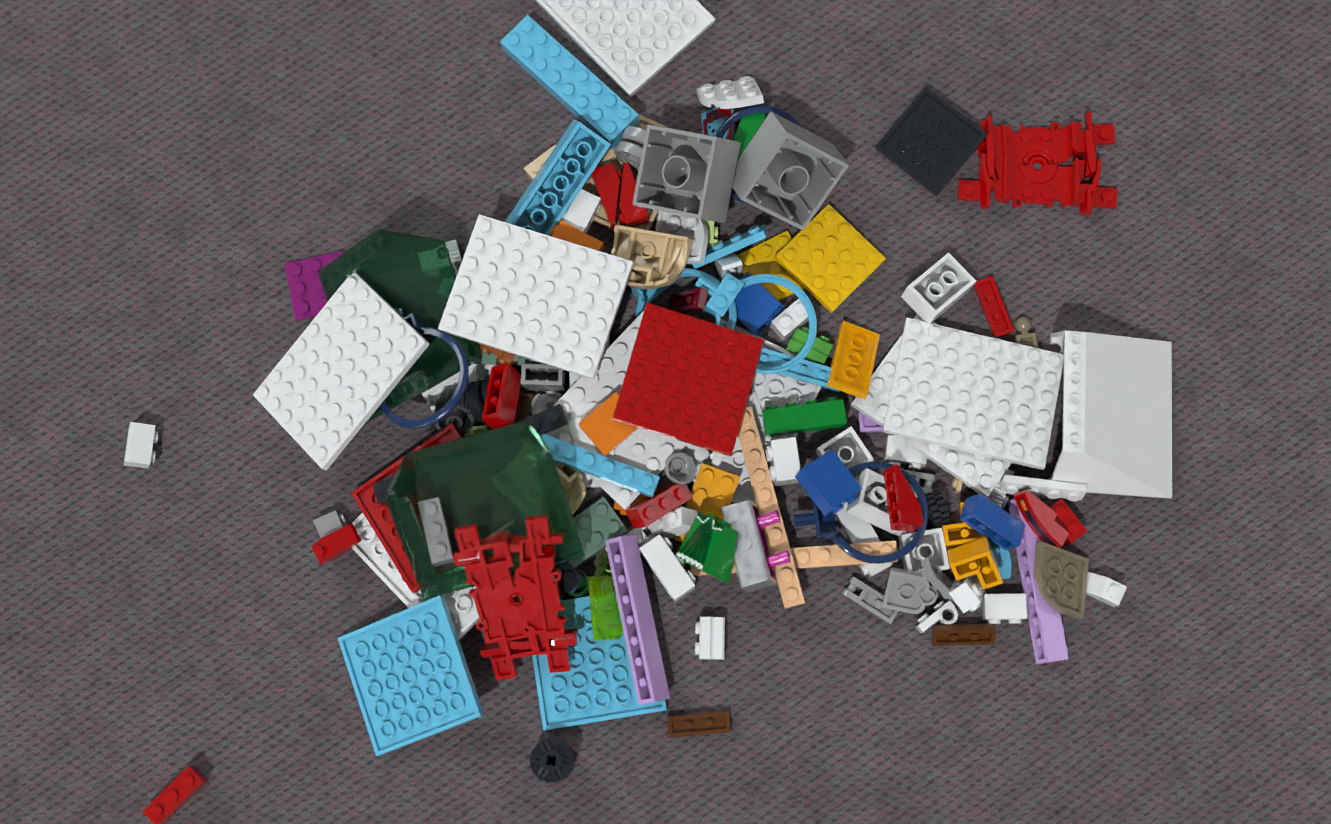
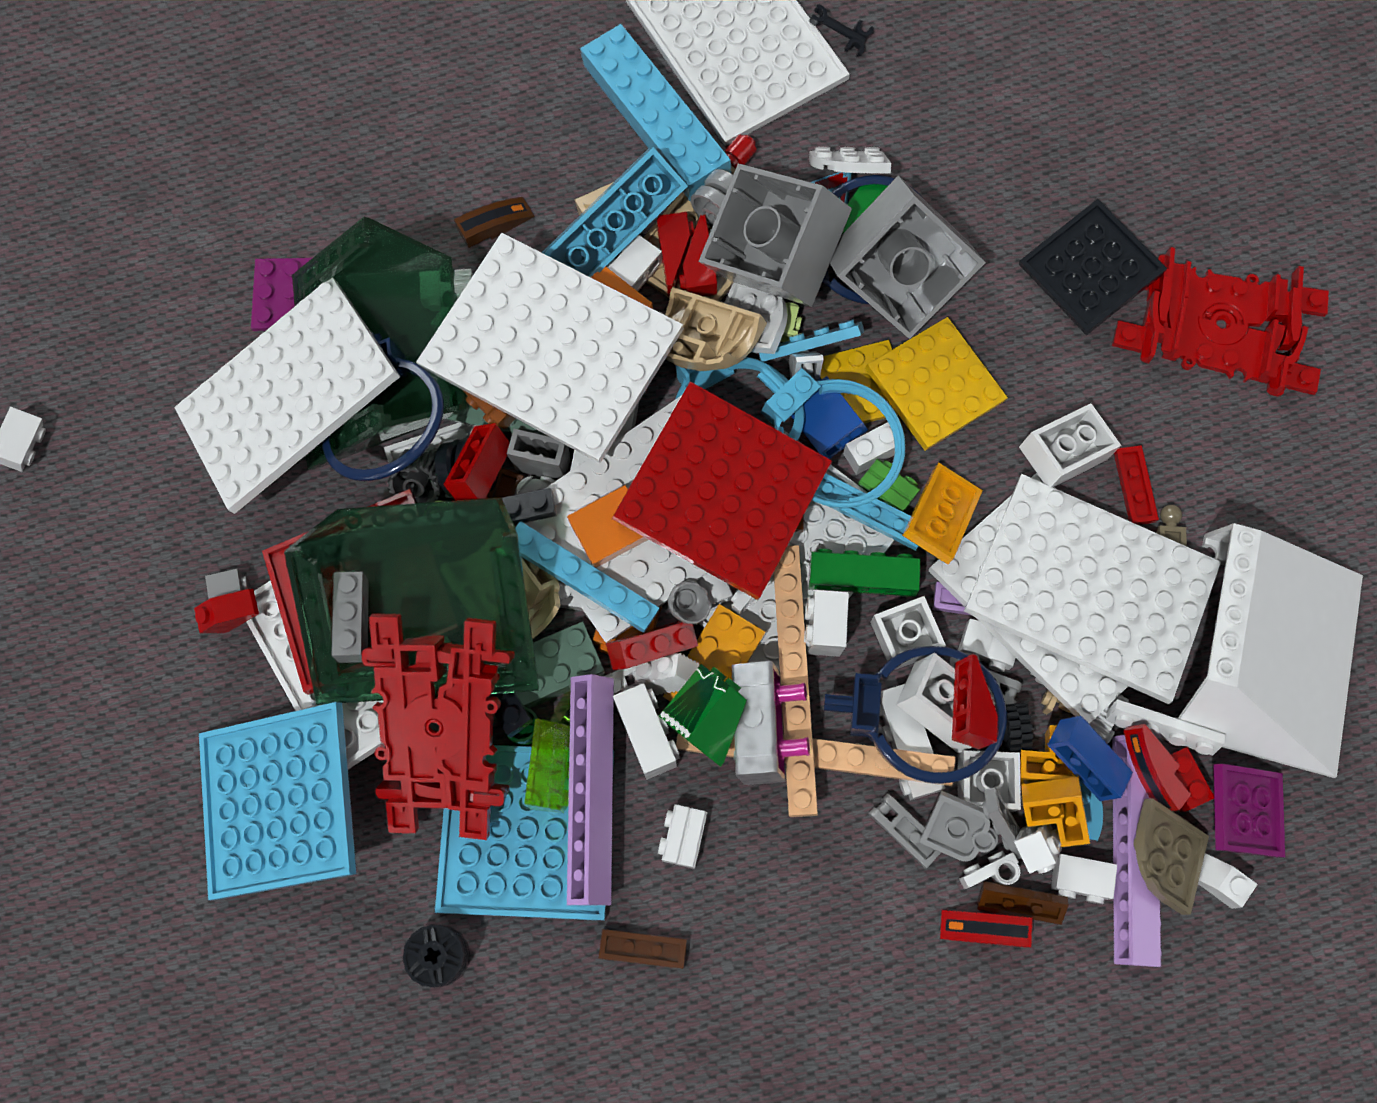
camera: 10 degrees right, 5 degrees down
(463, 195) = (492, 220): none -> reddish brown slope
(642, 100) = (741, 150): none -> red brick
(688, 300) = (749, 395): dark red plate -> none
(829, 483) = (881, 660): blue brick -> none
(940, 658) = (986, 928): none -> red slope
(1113, 535) = (1249, 811): none -> magenta plate

